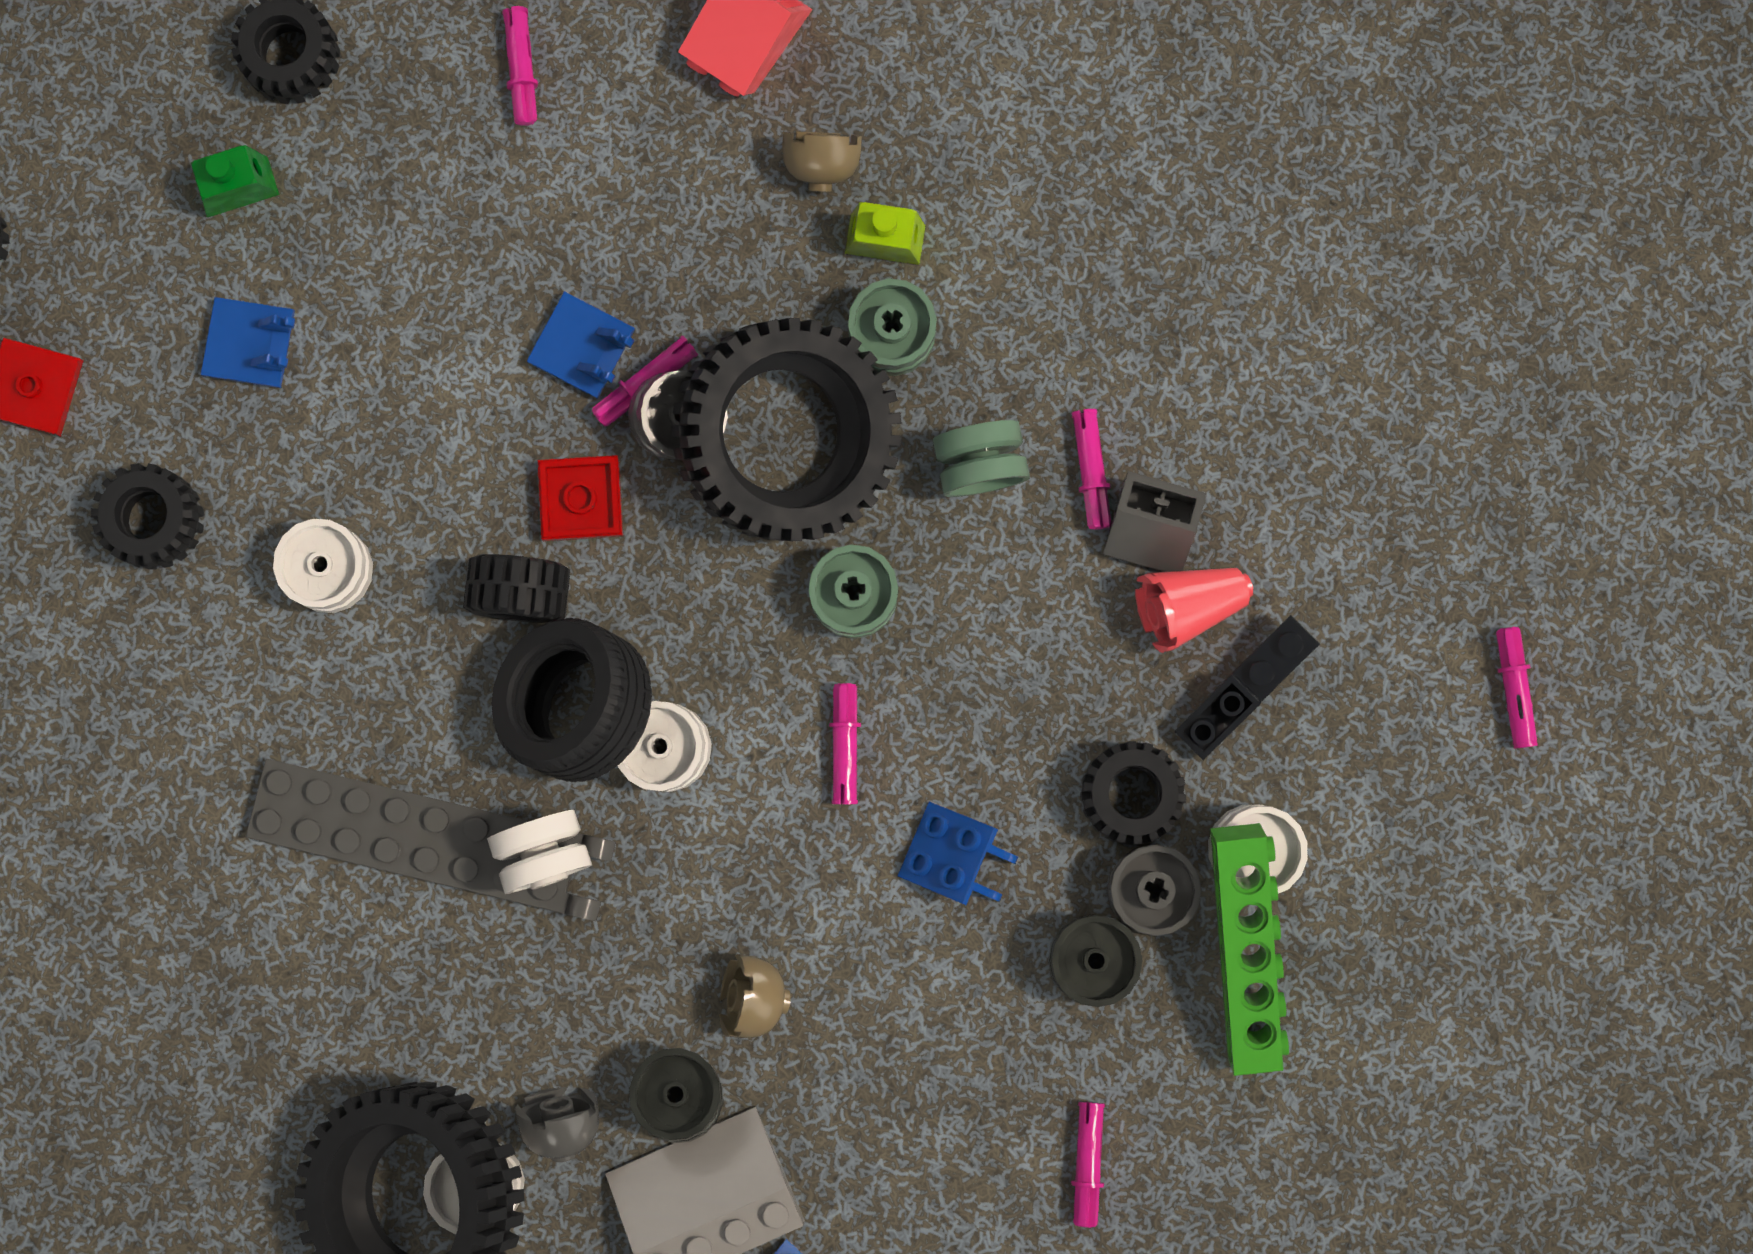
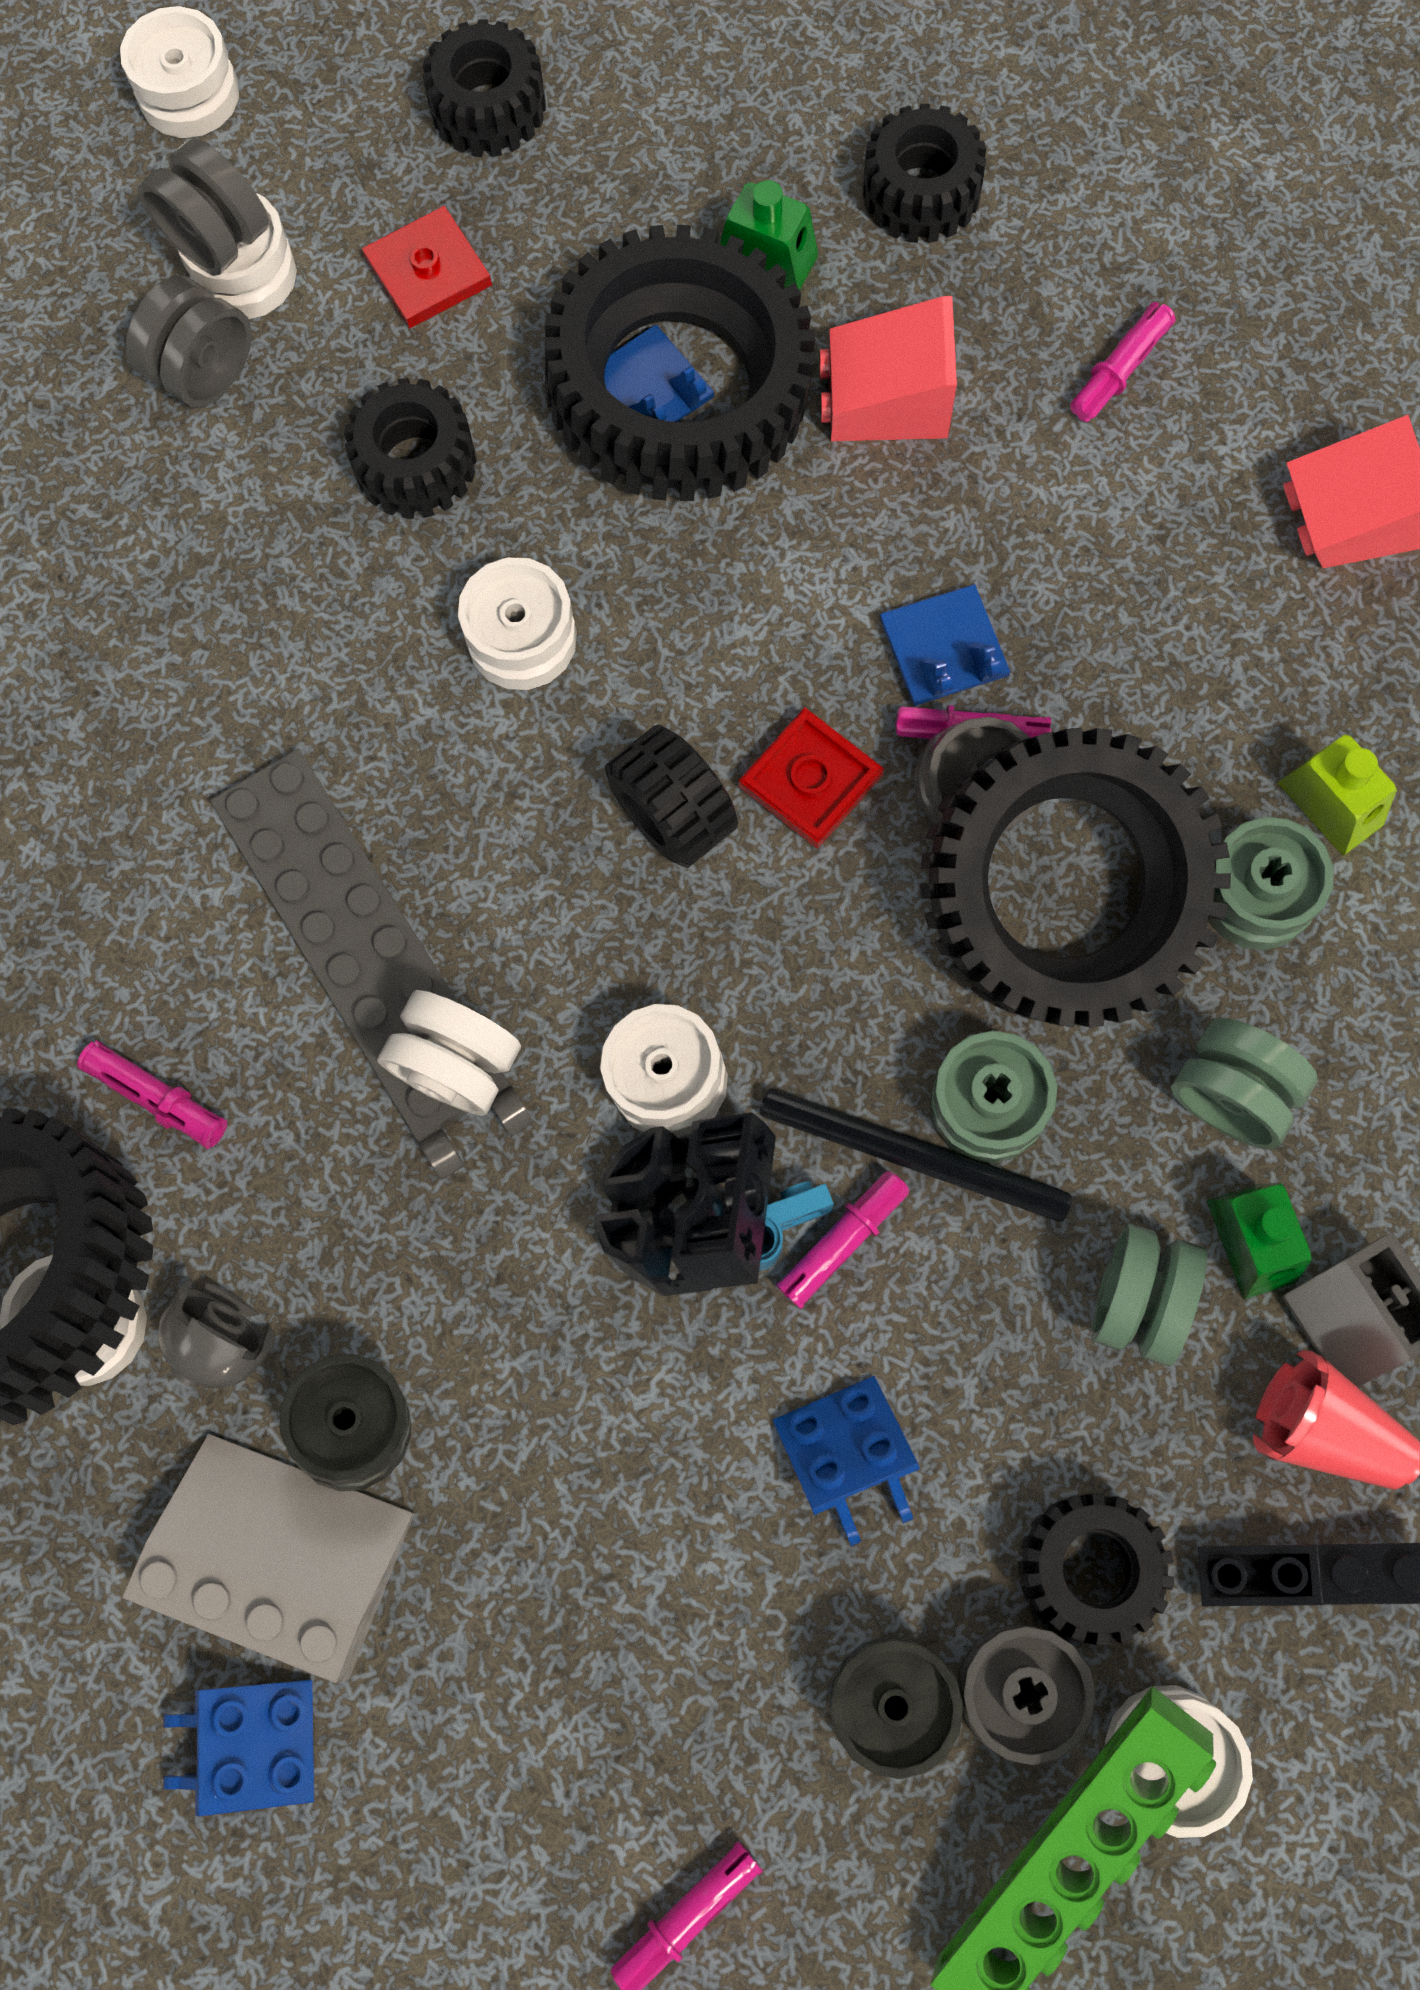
camera: 45 degrees right, 10 degrees down
(225, 250) = (695, 284): none -> black tyre
(392, 205) = (891, 374): none -> coral slope
(394, 1028) = (169, 1105): none -> dark pink pin
(530, 680) = (637, 988): black tyre -> none
(753, 996) = (515, 1400): dark tan cylinder -> none
(779, 821) = (699, 1239): none -> black connector
(804, 749) = (798, 1205): none -> dark azure plate
(821, 158) = (1341, 669): dark tan cylinder -> none
(839, 661) = (916, 1155): none -> black axle
(1029, 625) = (1149, 1295): none -> sand green wheel
(1062, 534) = (1261, 1237): none -> green torso
(1092, 469) = (1349, 1198): dark pink axle -> none

